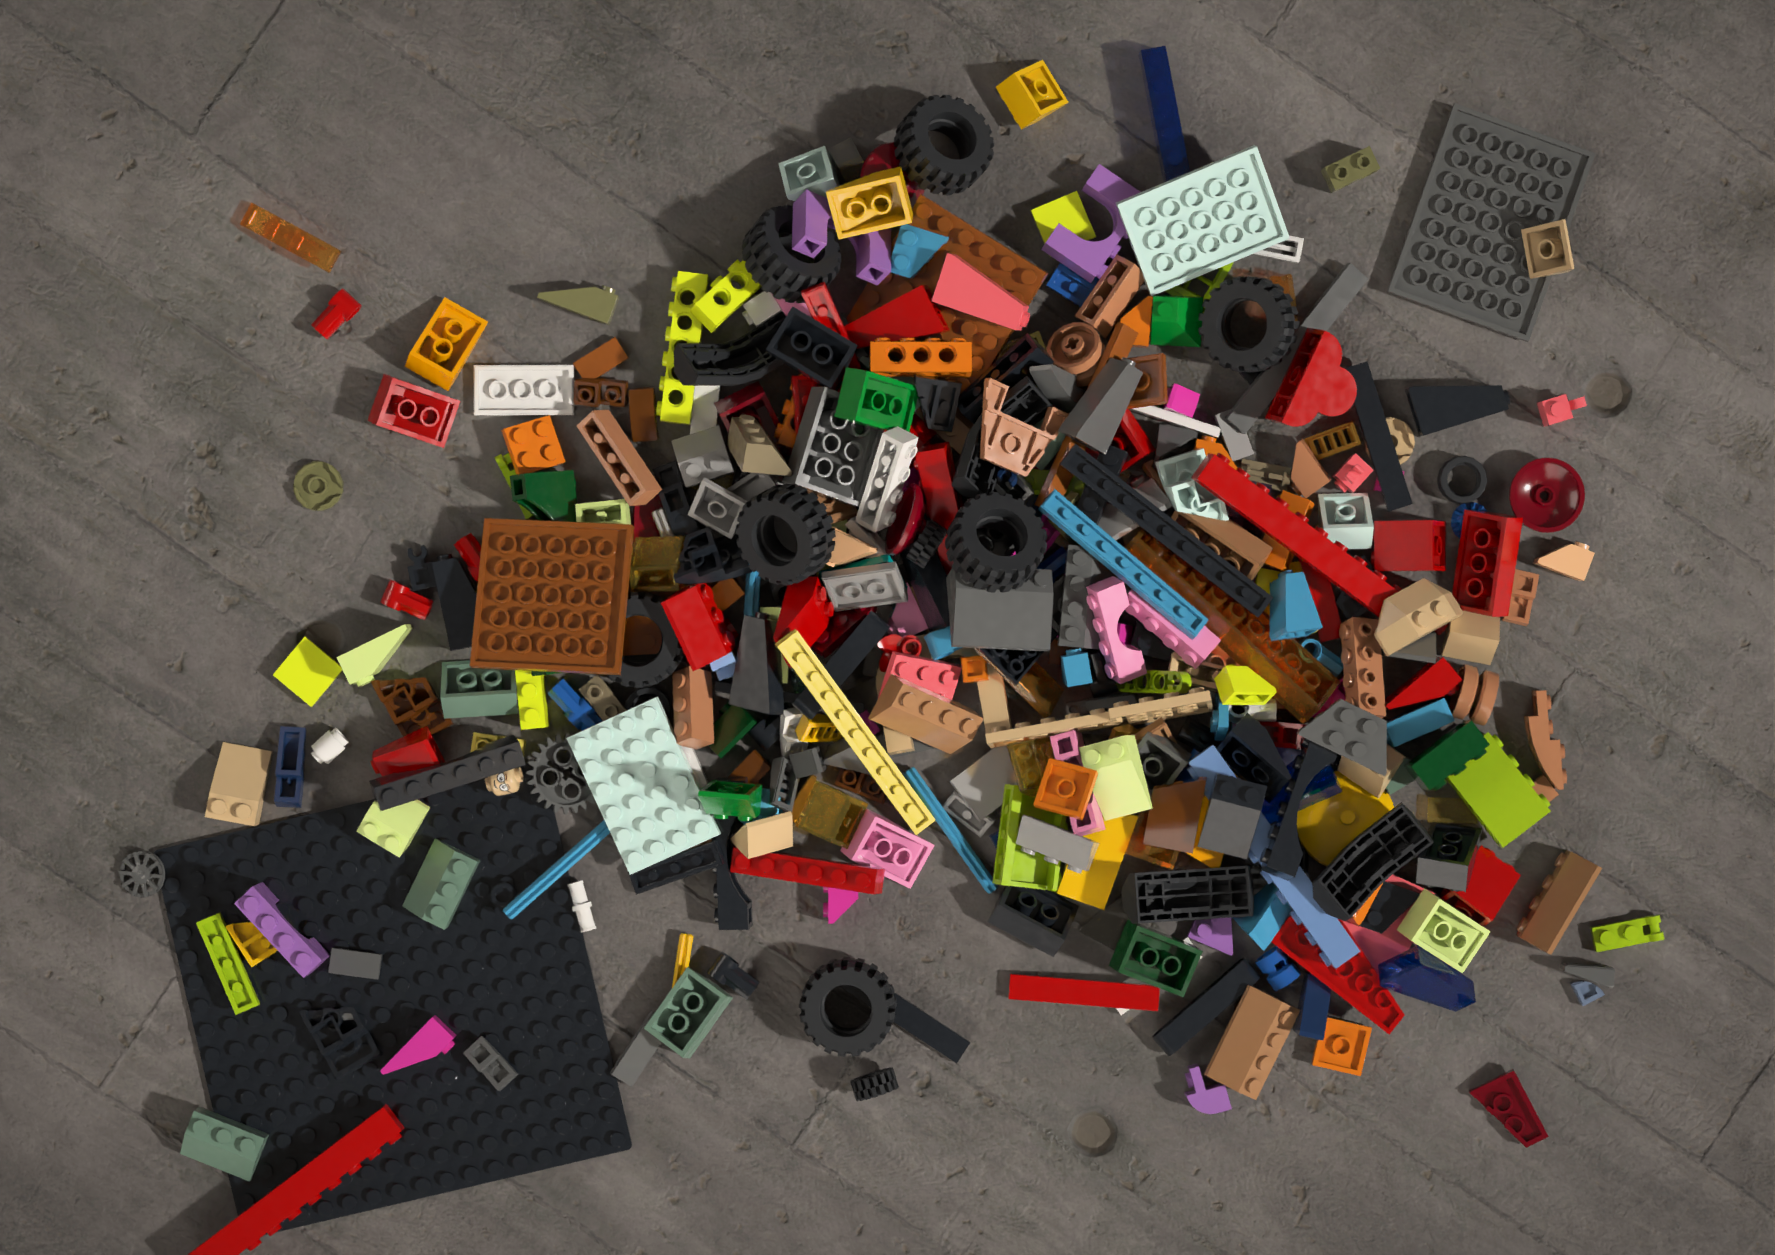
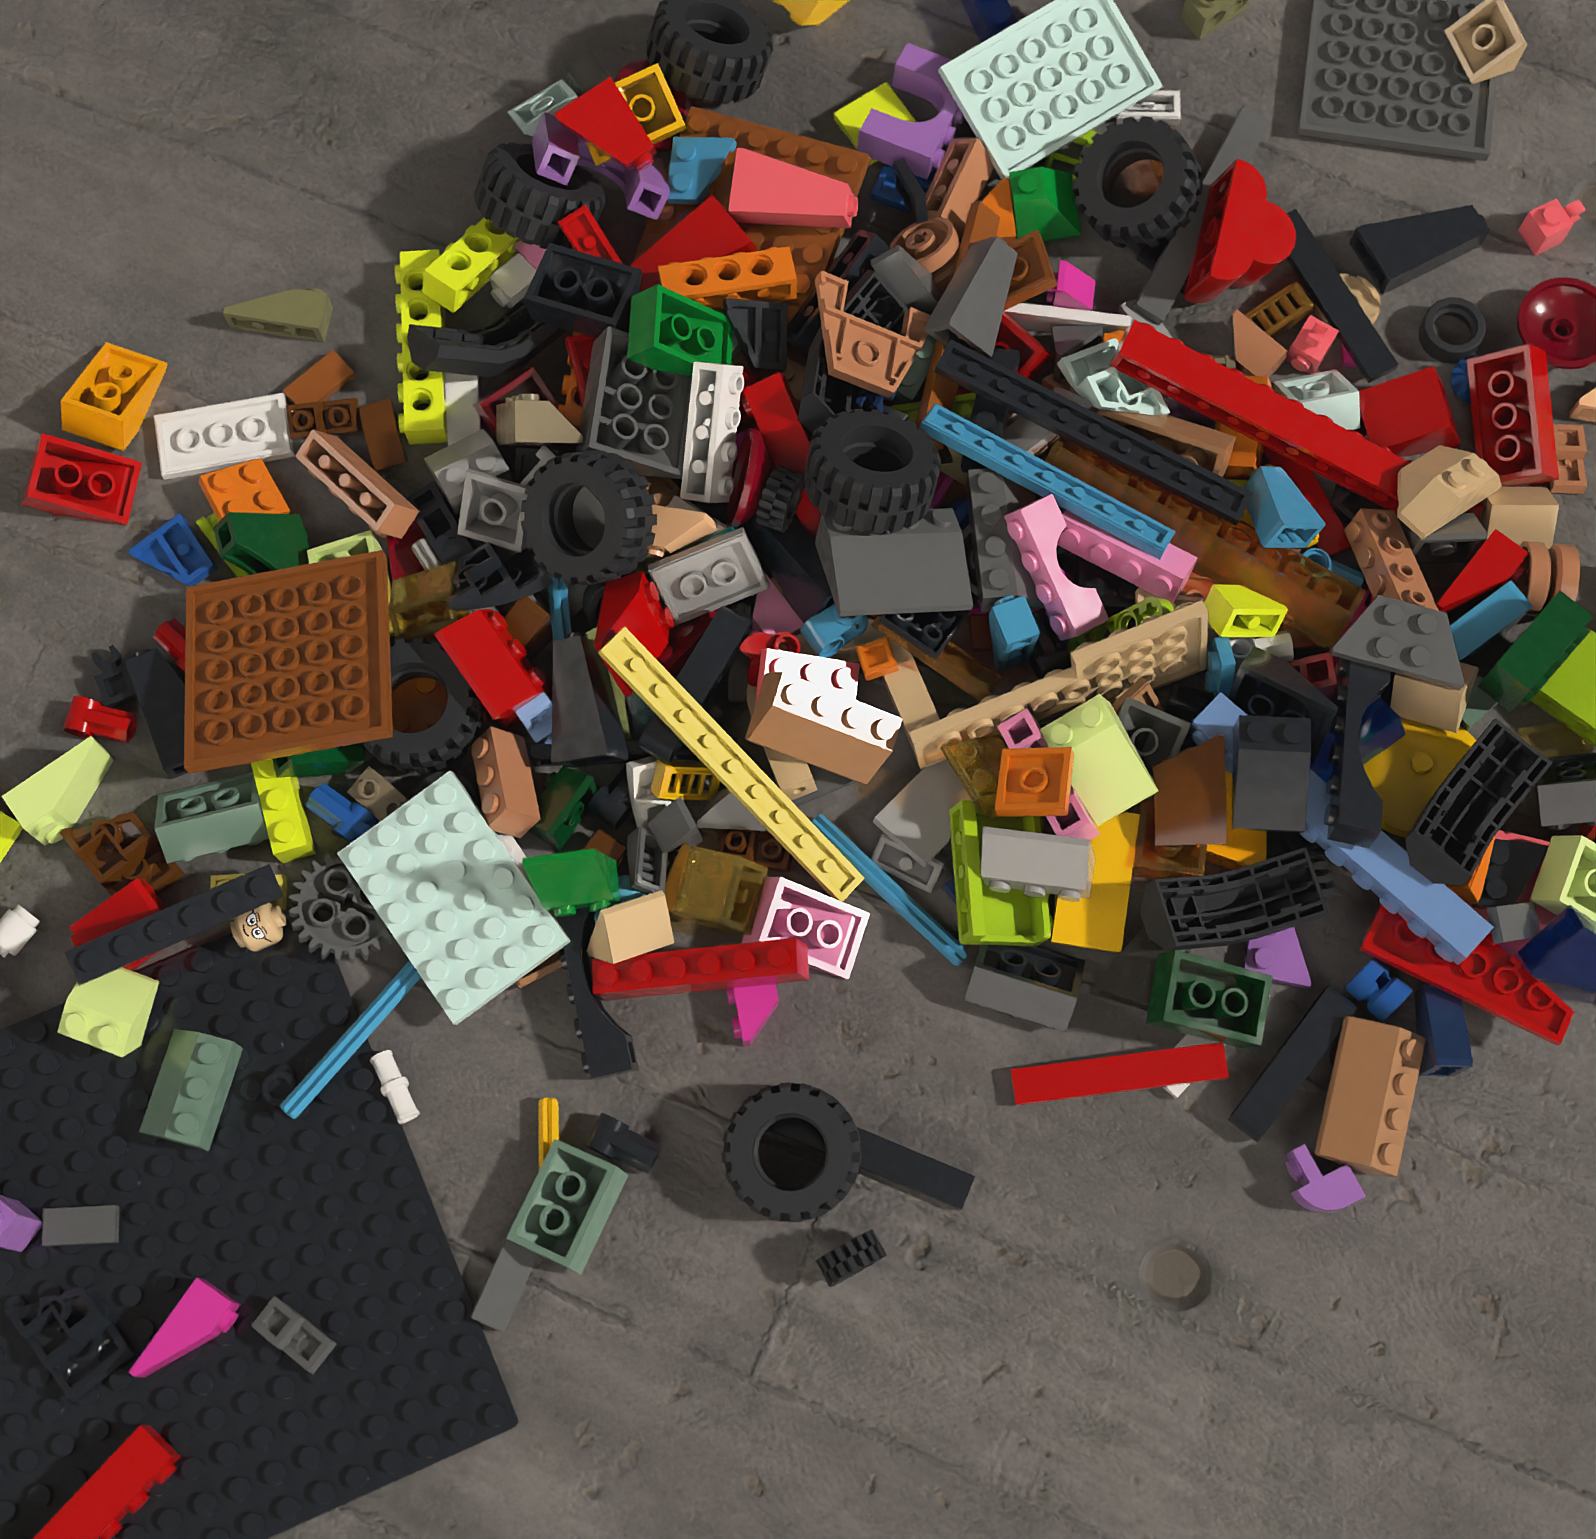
camera: 15 degrees left, 15 degrees down
(478, 479) = (176, 552): none -> blue wing
(678, 867) = (518, 1003): black tile -> none
(852, 225) = (609, 126): none -> red slope
(1074, 298) = (910, 191): none -> black tile
(1267, 916) = (1349, 921): dark azure slope -> none
(1342, 1046) = (1496, 1084): orange plate -> none
(1380, 946) = (1513, 922): none -> dark grey slope

